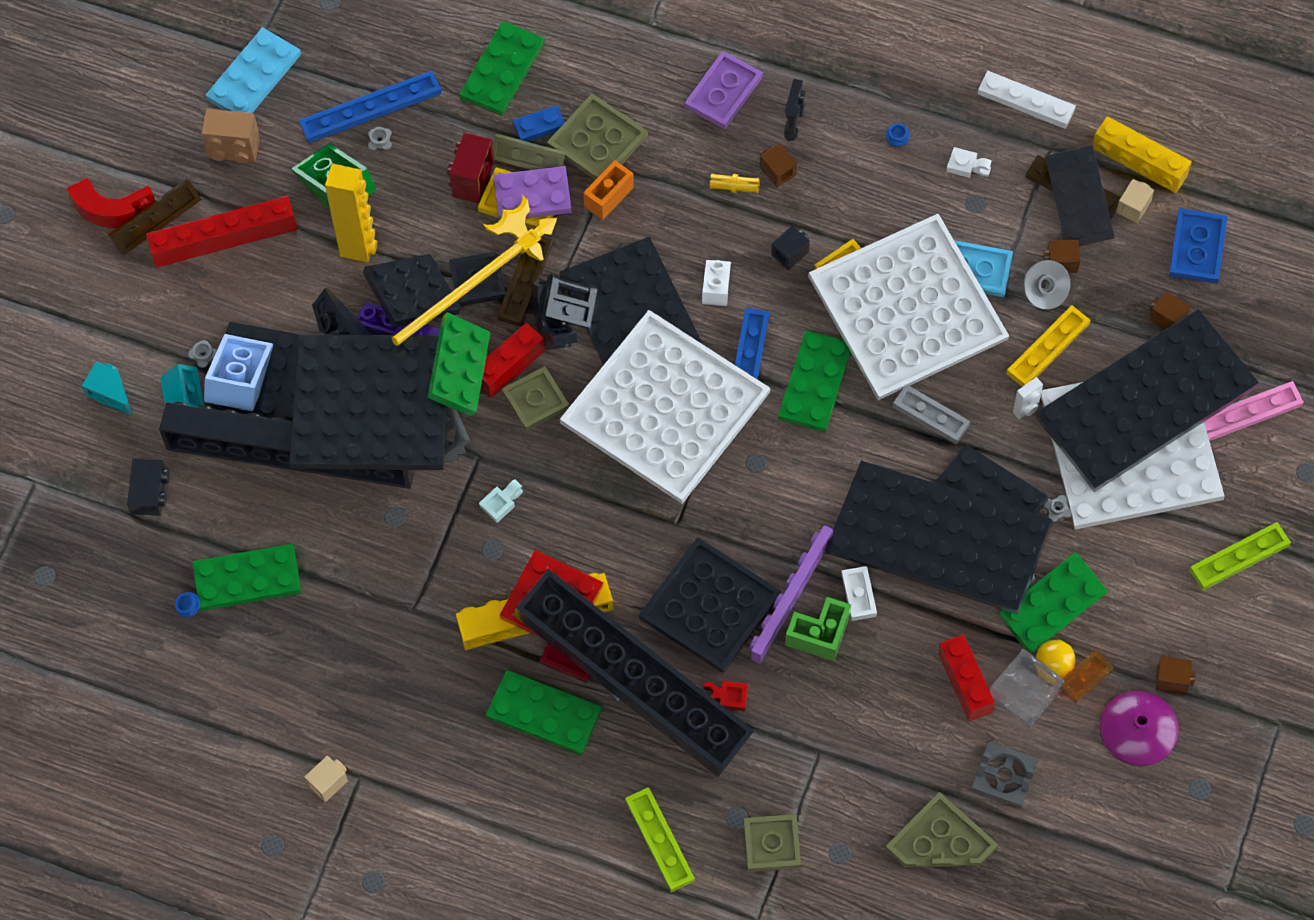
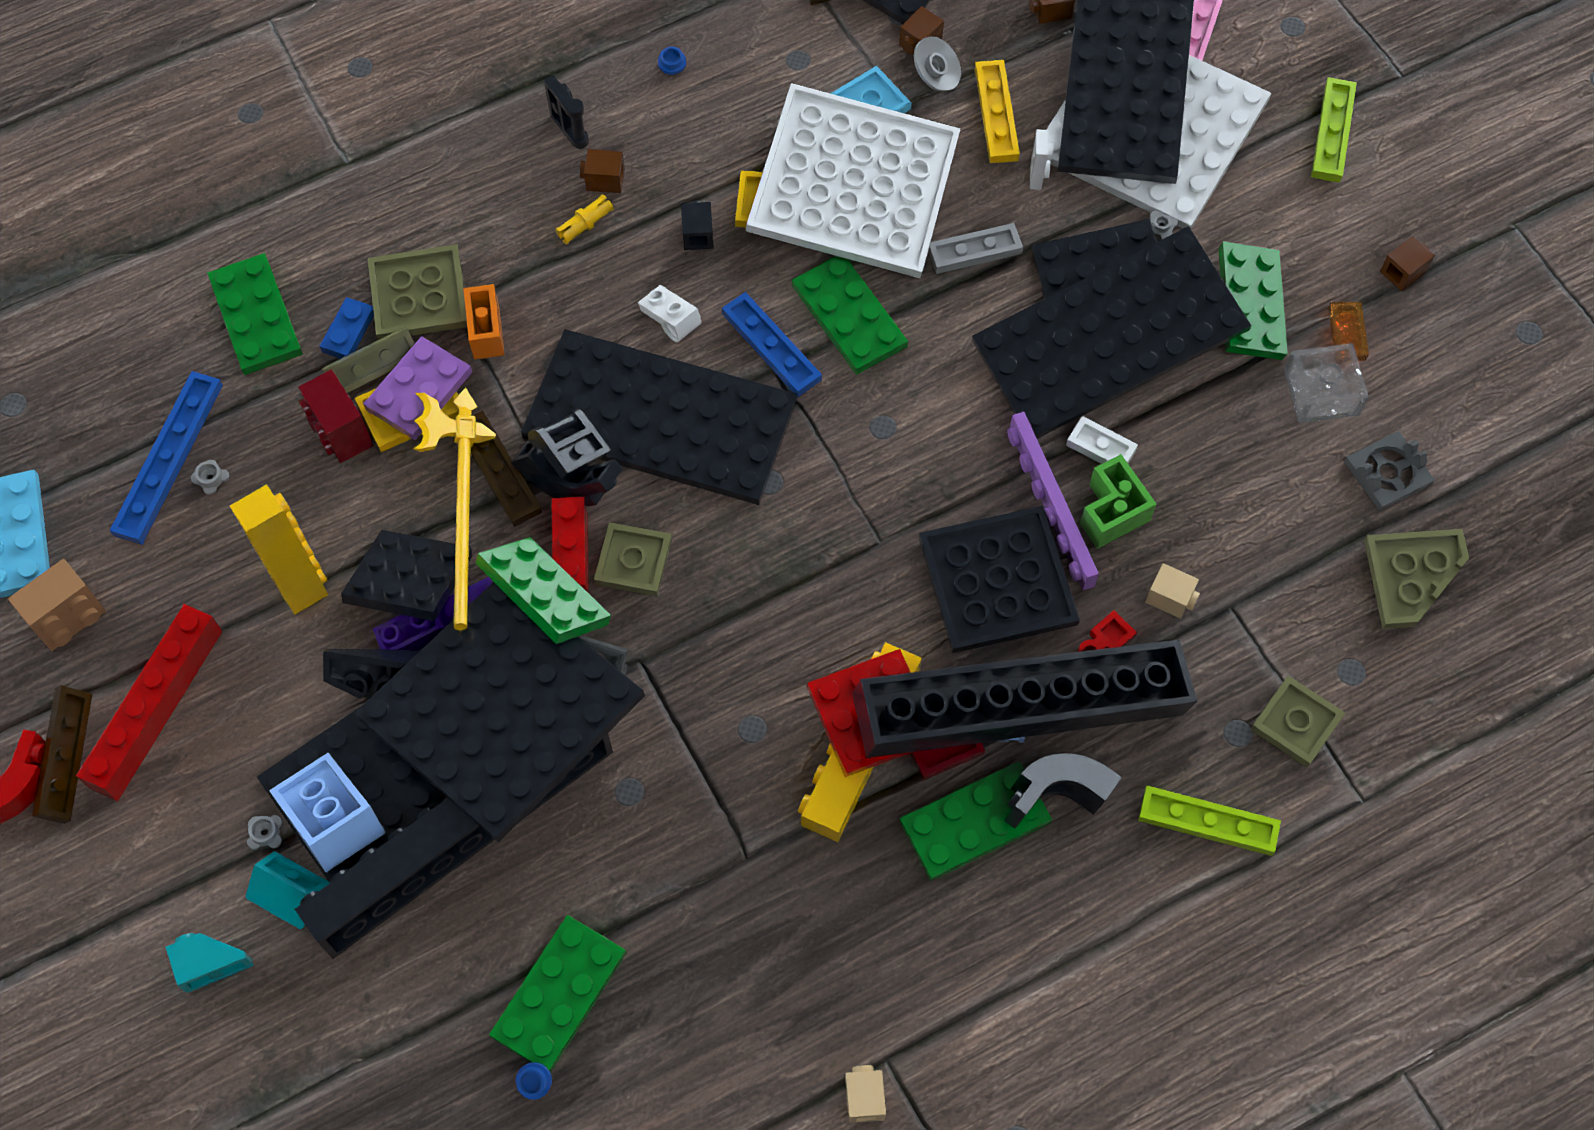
camera: 50 degrees left, 0 degrees up
(146, 487) = (359, 1013): black brick -> none
(315, 170) = (205, 551): green slope -> none
(488, 290) = (437, 507): black plate -> none
(499, 502) = (712, 680): light aqua plate -> none
(607, 731) = (1064, 775): none -> arch
(665, 406) = (759, 451): white plate -> none
(723, 90) = (481, 154): medium lavender plate -> none
(793, 708) = (1173, 591): none -> tan brick
(965, 162) = (754, 35): white plate -> none
(966, 678) = (1270, 424): red brick -> none
(1057, 656) = (1308, 335): yellow hair -> none
(1135, 742) = (1426, 343): magenta dish -> none

